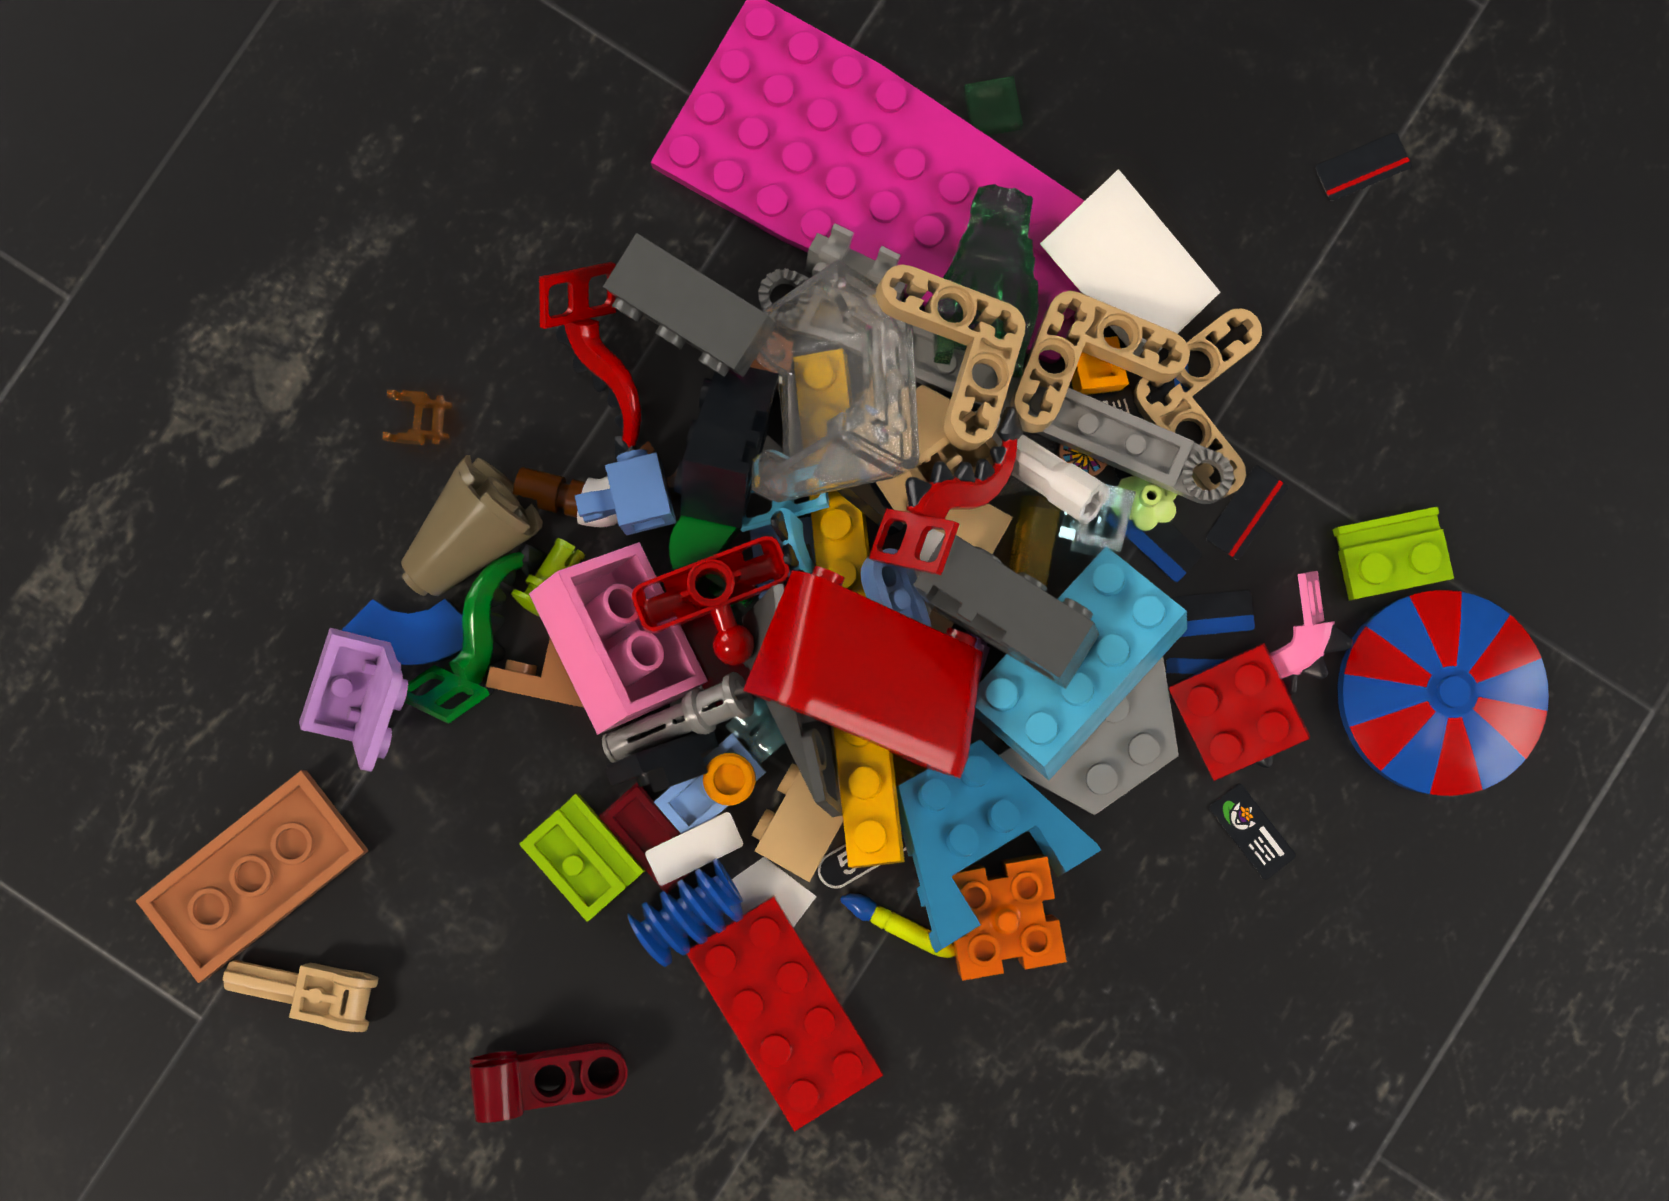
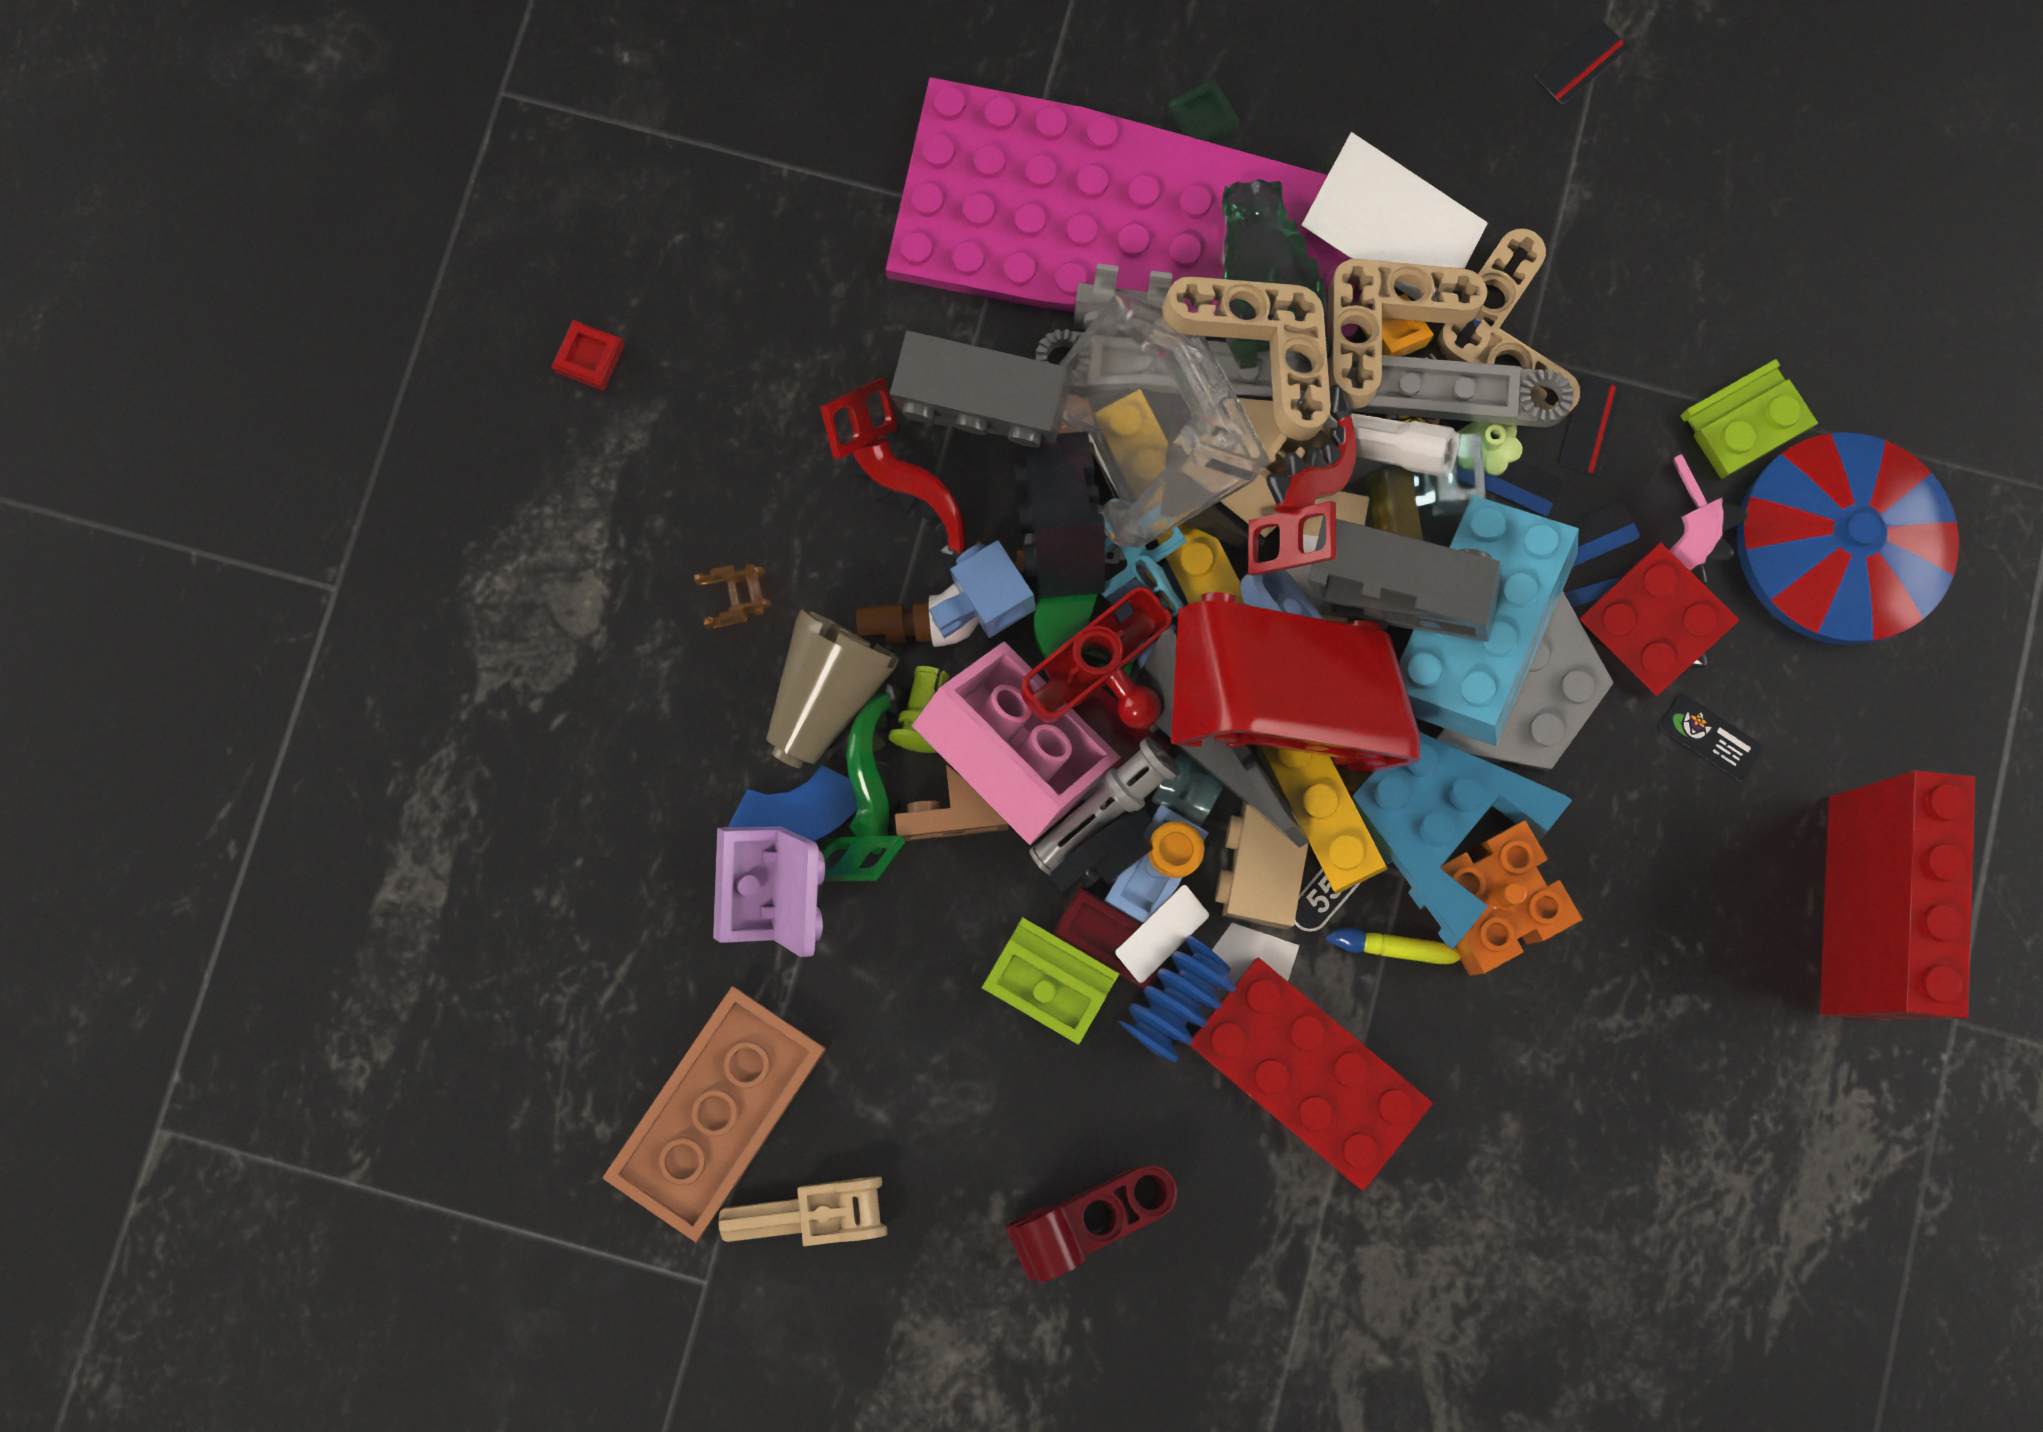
camera: 20 degrees left, 5 degrees down
(358, 155) = (588, 355): none -> red tile
(1349, 1043) = (1899, 899): none -> red brick

